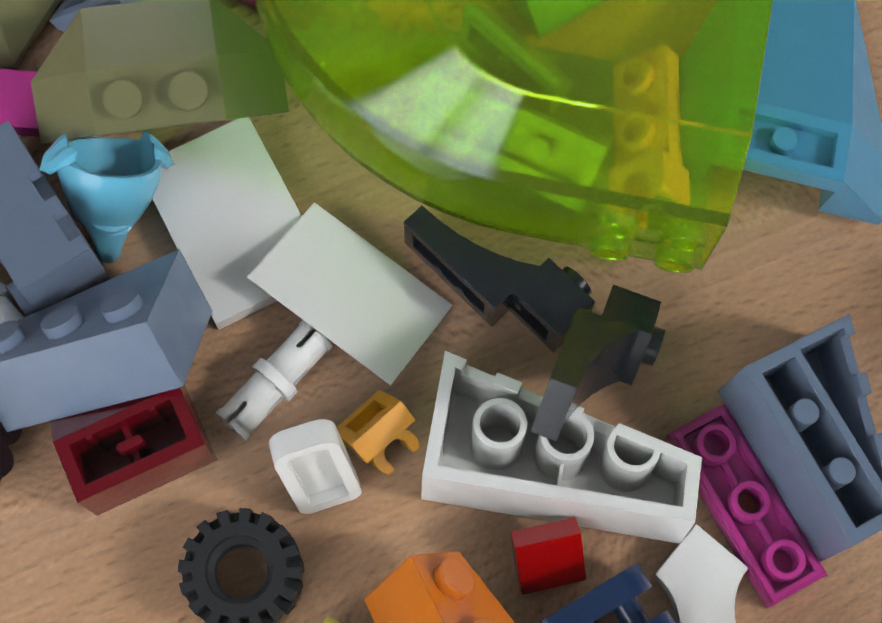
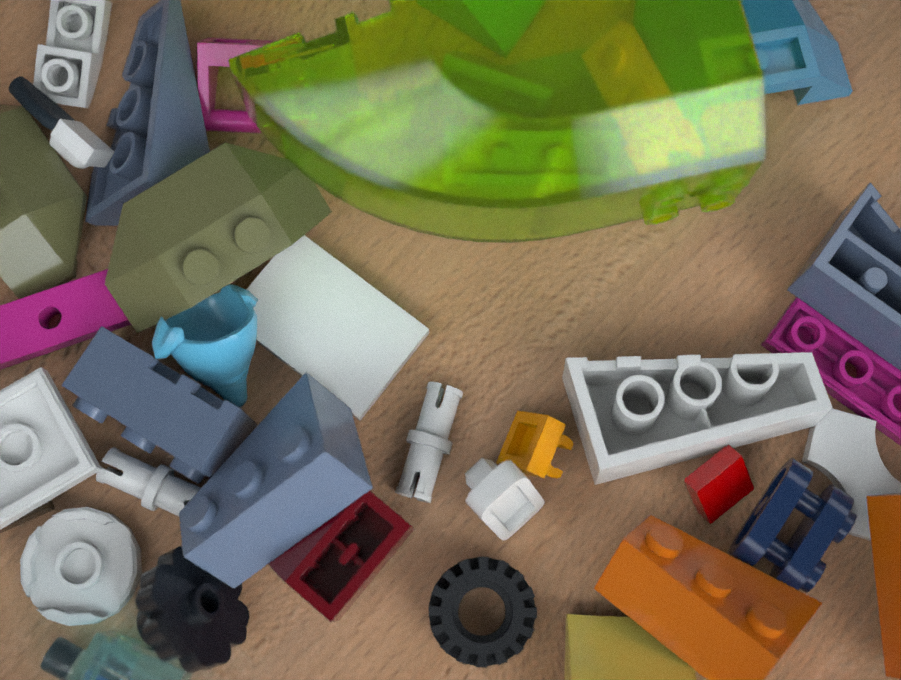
camera: 25 degrees left, 5 degrees up
(350, 292) = (456, 341): white sticker -> none
(494, 284) = (619, 277): black slope -> none
(599, 354) = (685, 302): black slope -> none

